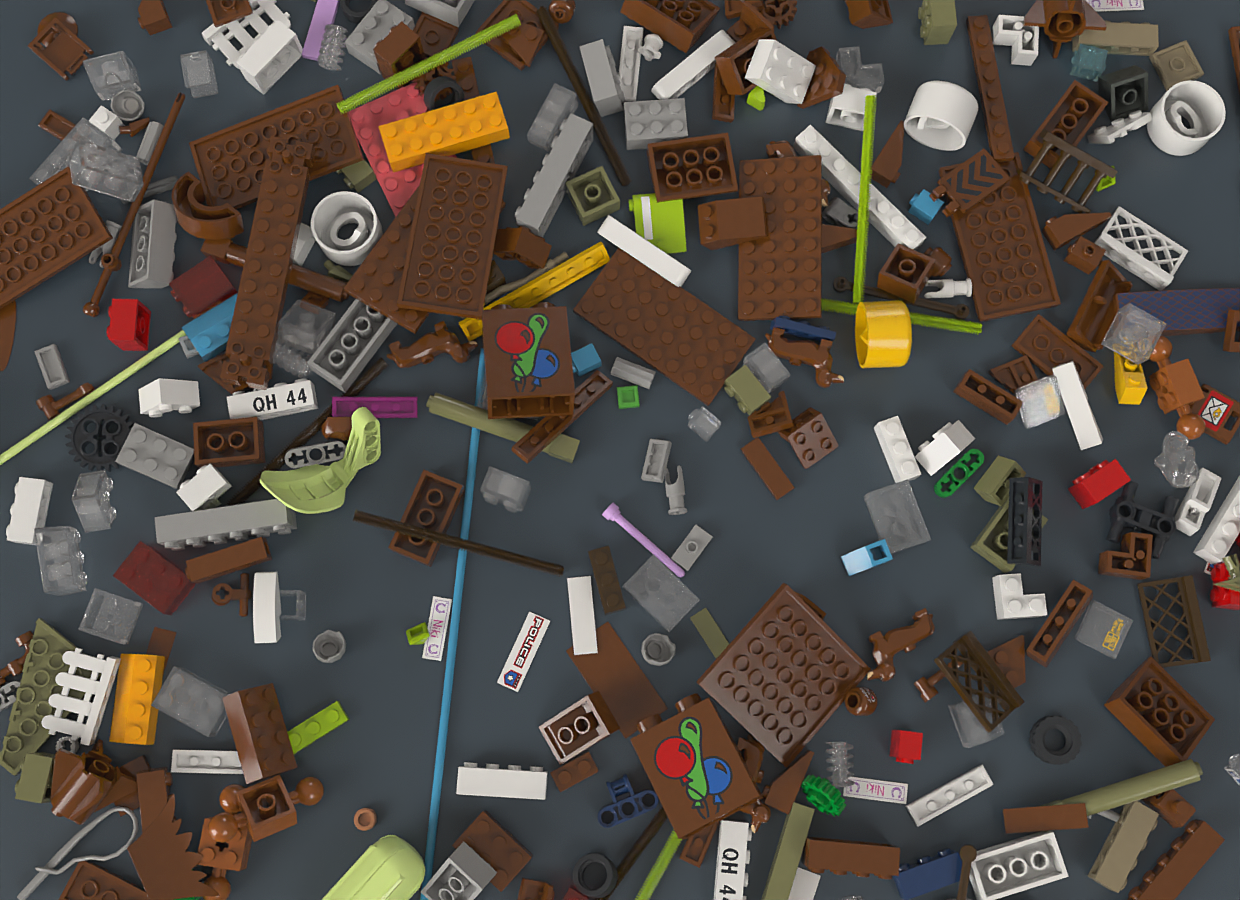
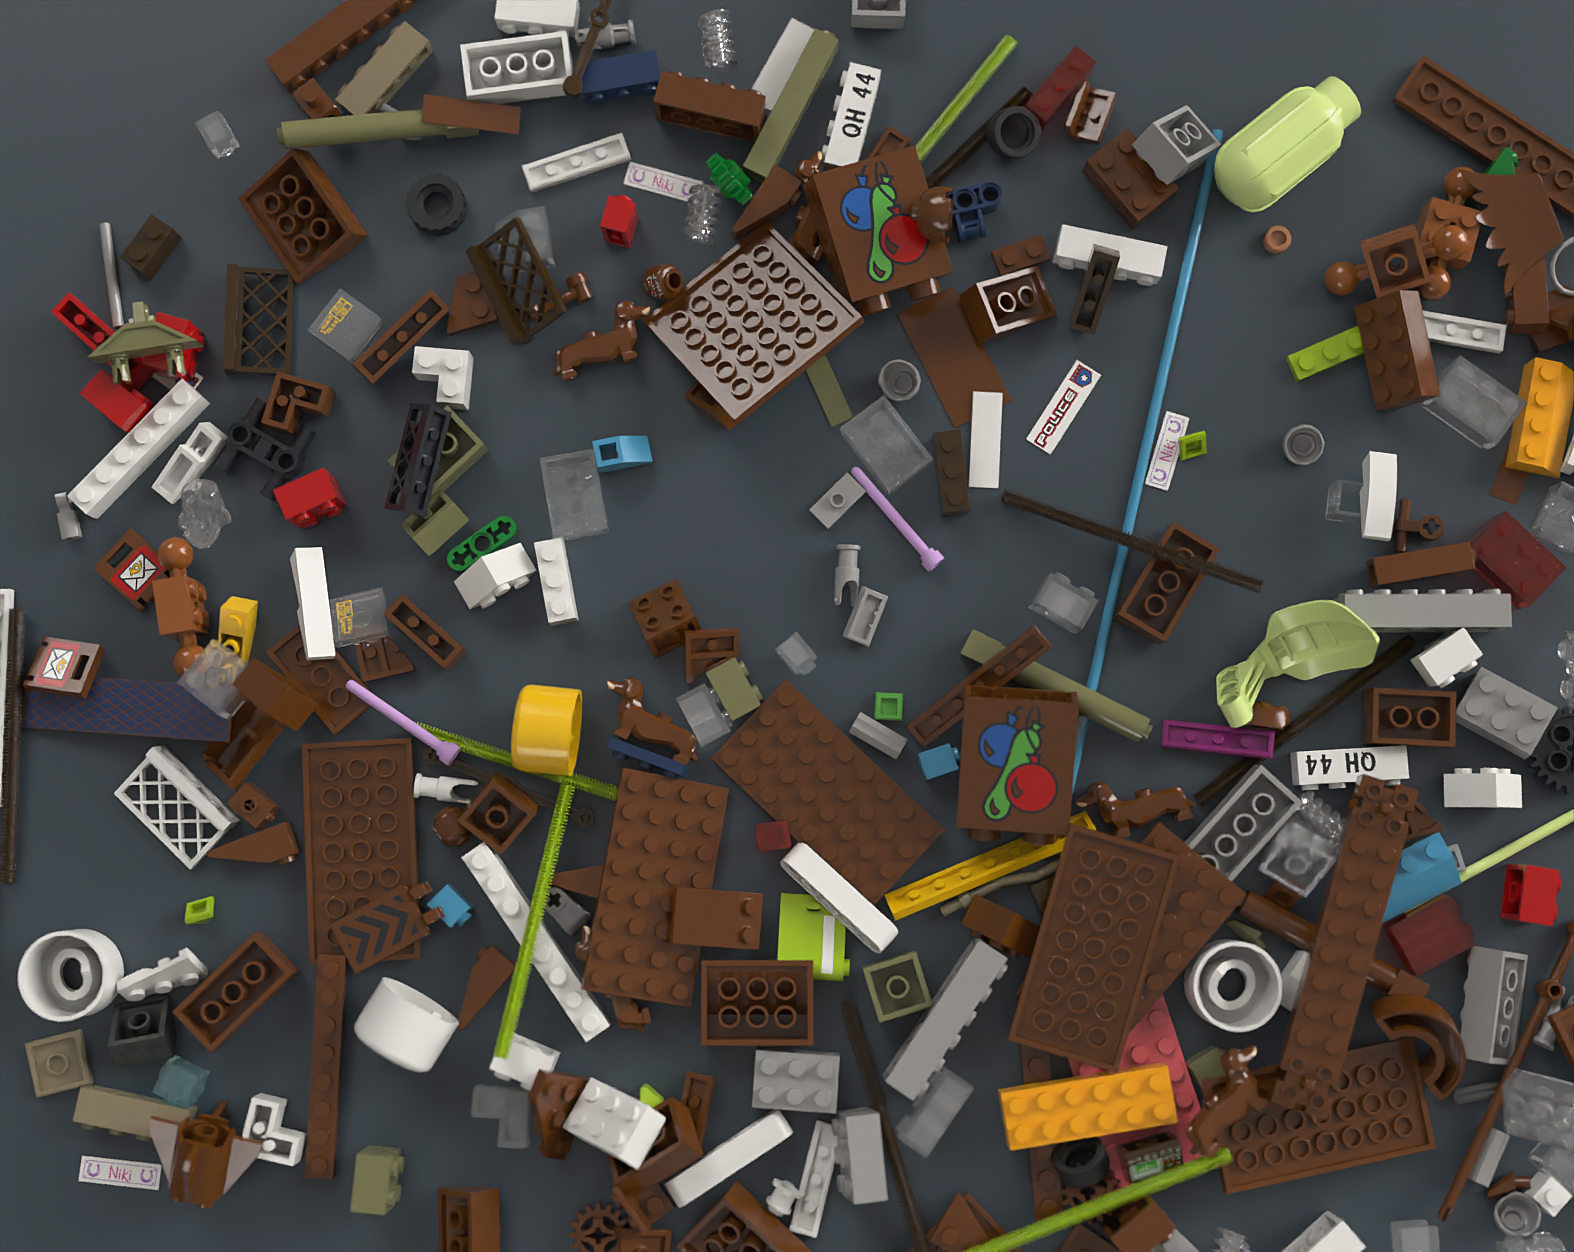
camera: 170 degrees left, 5 degrees up
(301, 463) = (1307, 680): light grey beam -> none
(342, 140) = (1229, 1104): none -> reddish brown animal
(396, 104) = (1149, 1156): none -> dark brown slope
(512, 746) = (1094, 289): none -> dark brown brick
(653, 779) = (934, 213): none -> reddish brown cylinder
(702, 286) = (772, 836): none -> clear red slope
(767, 468) = (725, 586): reddish brown tile -> none
(953, 313) = (446, 750): none -> lavender piece
(1067, 151) = (247, 945): dark brown fence -> none
(1092, 323) = (273, 695): none -> reddish brown brick

